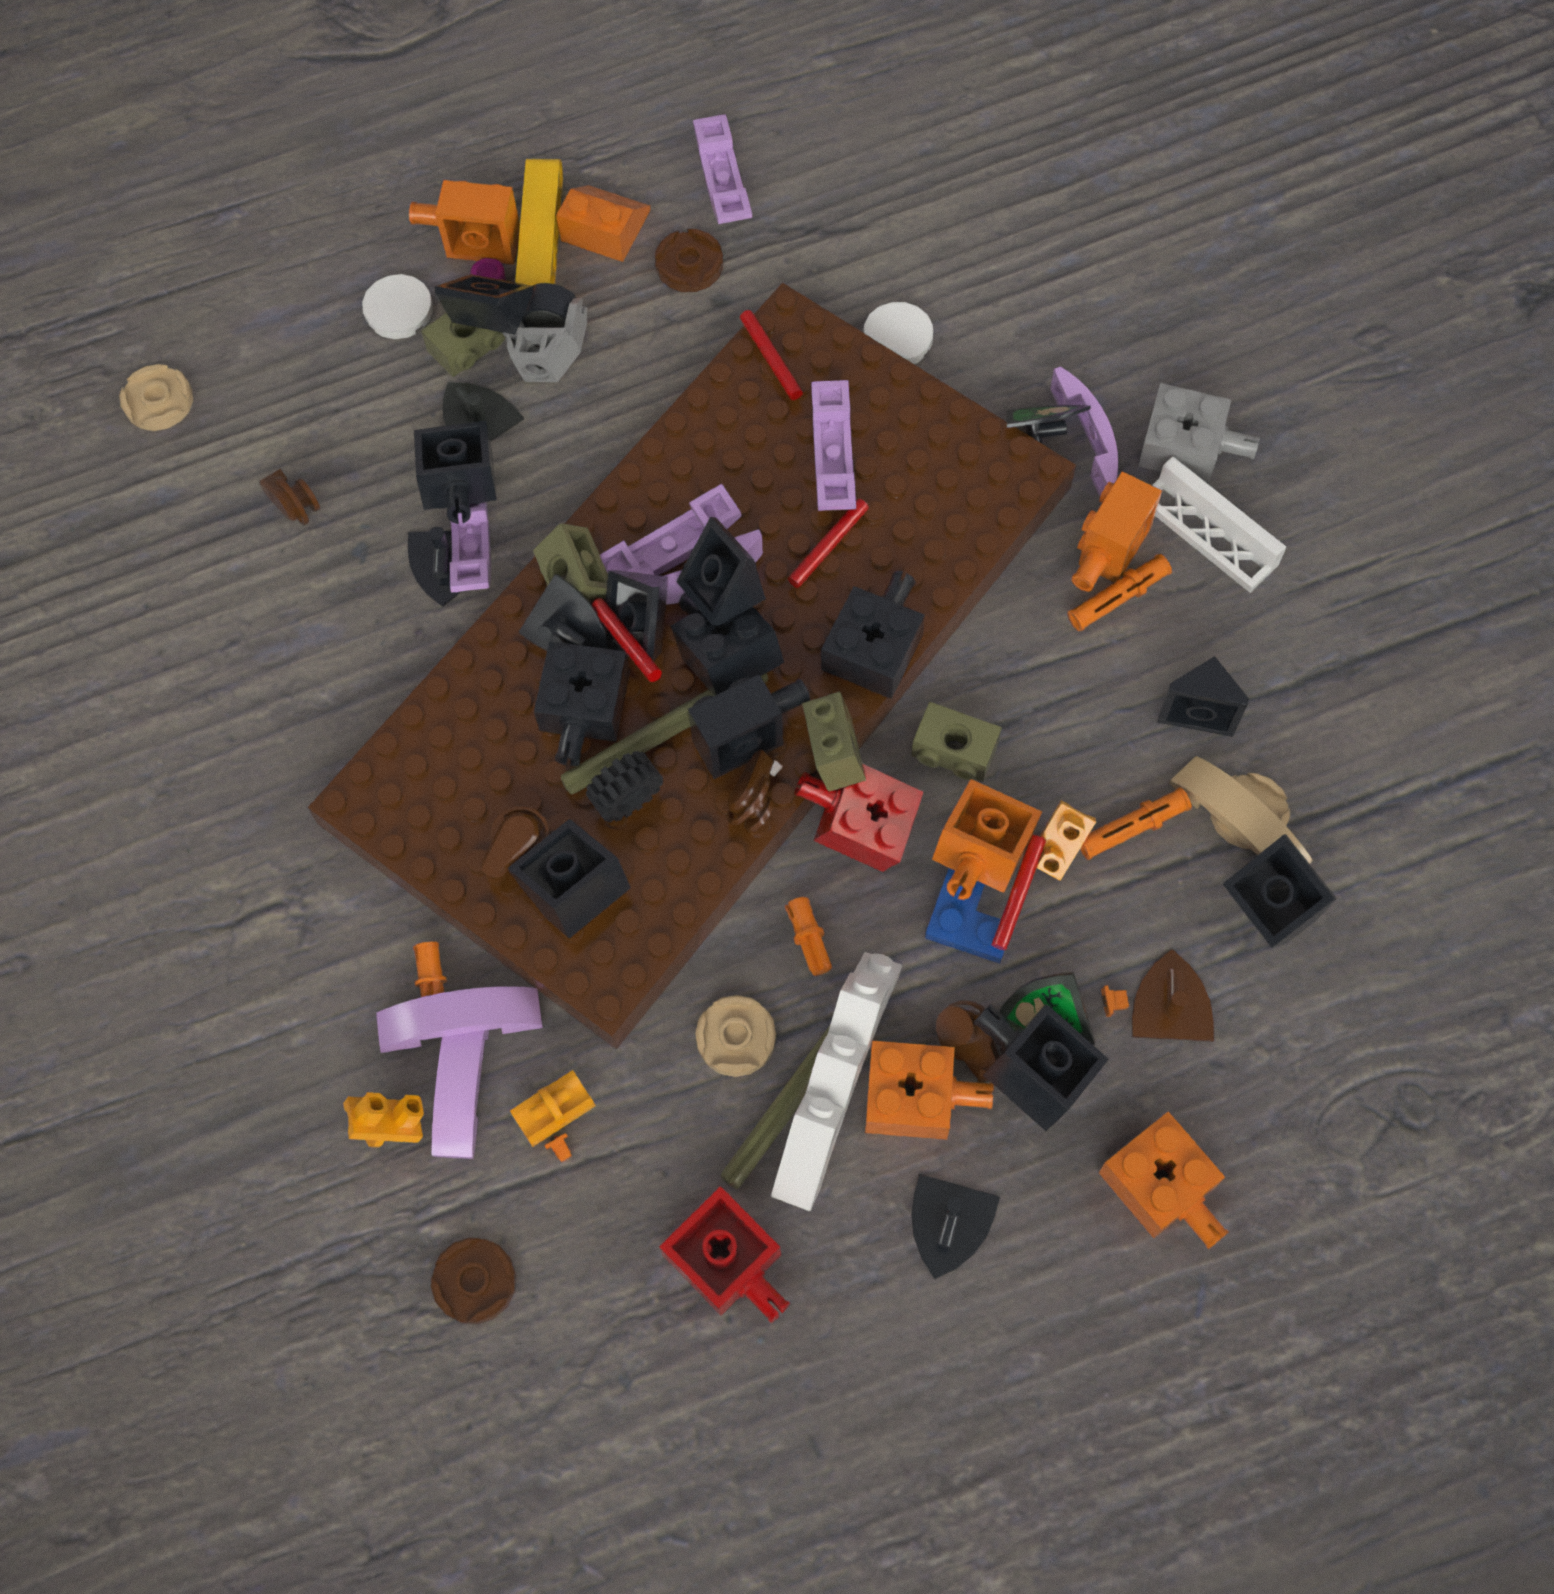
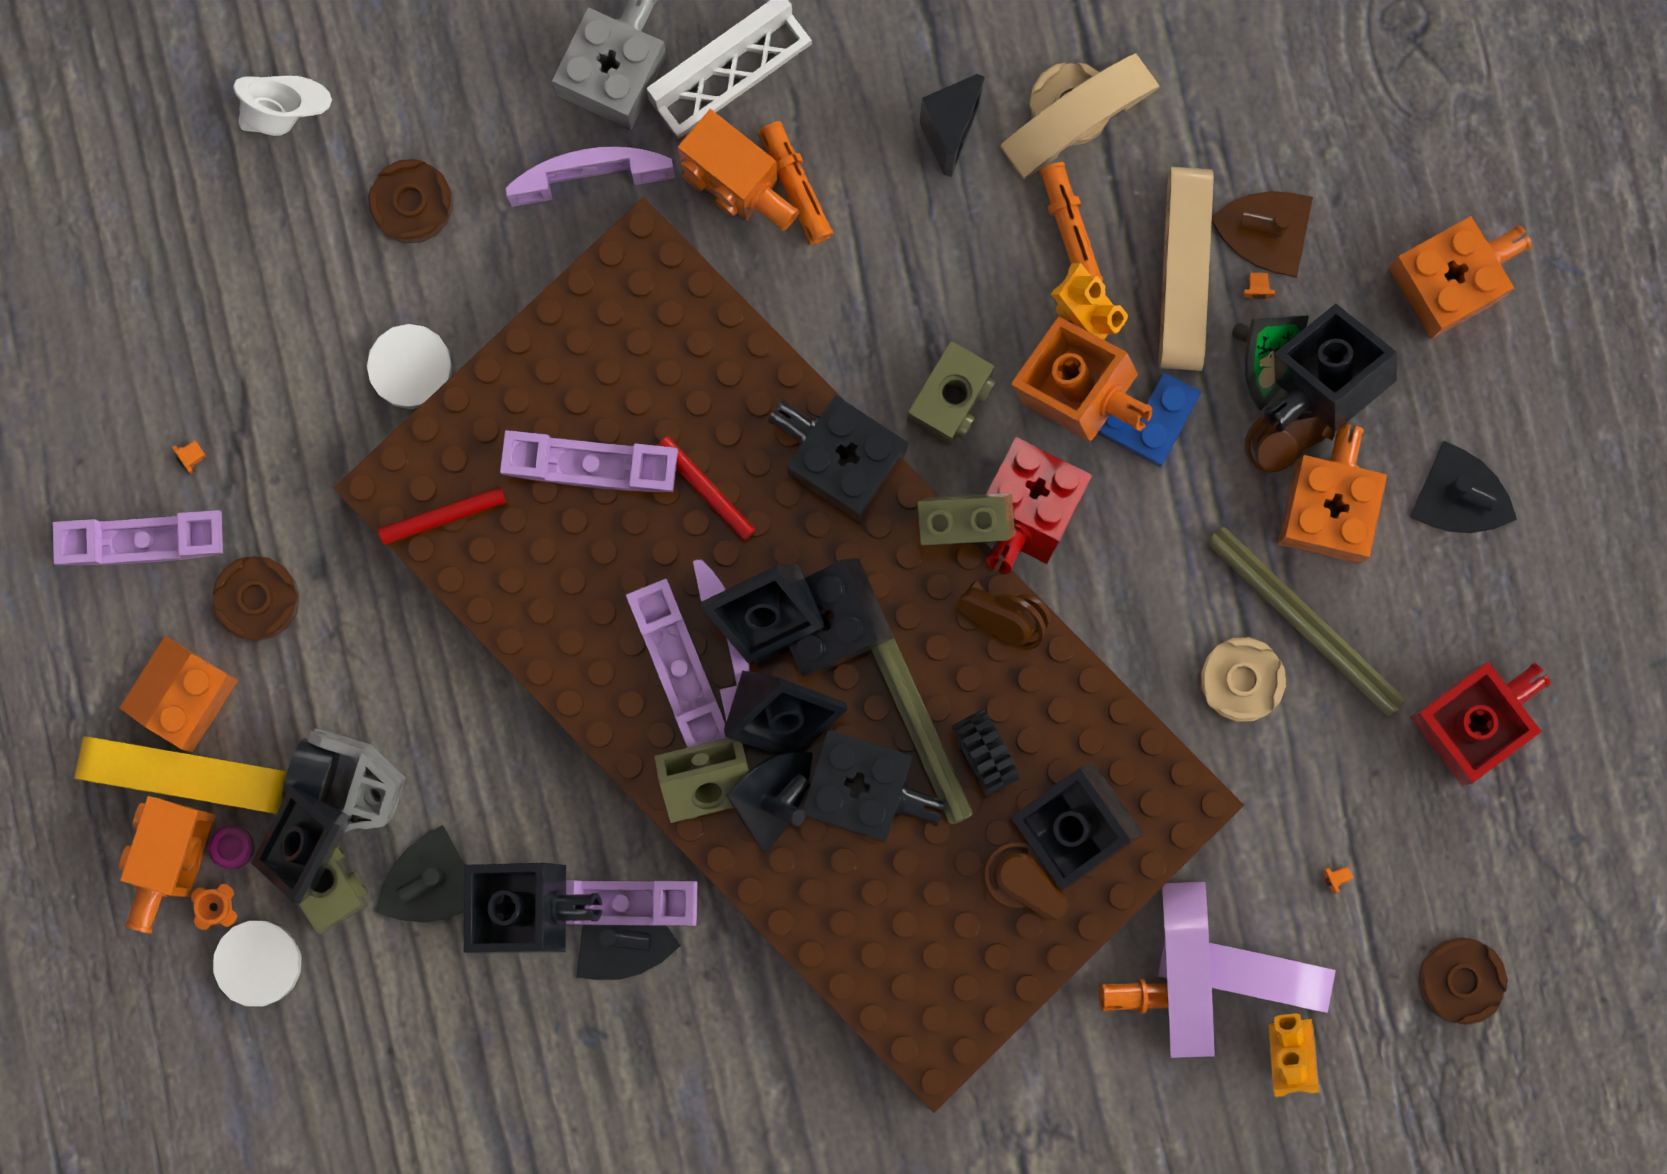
camera: 85 degrees left, 15 degrees up
(289, 499) = (522, 1109): reddish brown piece -> none
(436, 262) = (204, 915): none -> orange plate
(552, 1108) = (1304, 878): light orange hips -> none
(627, 640) = (814, 727): red bar -> none
(741, 721) = (930, 611): black brick -> none
(796, 199) = (189, 455): none -> orange piece
(808, 935) = (1147, 587): orange axle -> none
(834, 1080) = (1315, 572): white arch -> none
(1018, 892) = (1146, 361): red bar -> none
(1035, 416) = (565, 223): black shield -> none
(1037, 314) = (410, 201): none -> reddish brown tile
(1094, 203) = (277, 102): none -> white piece
(1115, 928) = (1185, 269): none -> tan beam
(1280, 892) = (1185, 95): black slope -> none

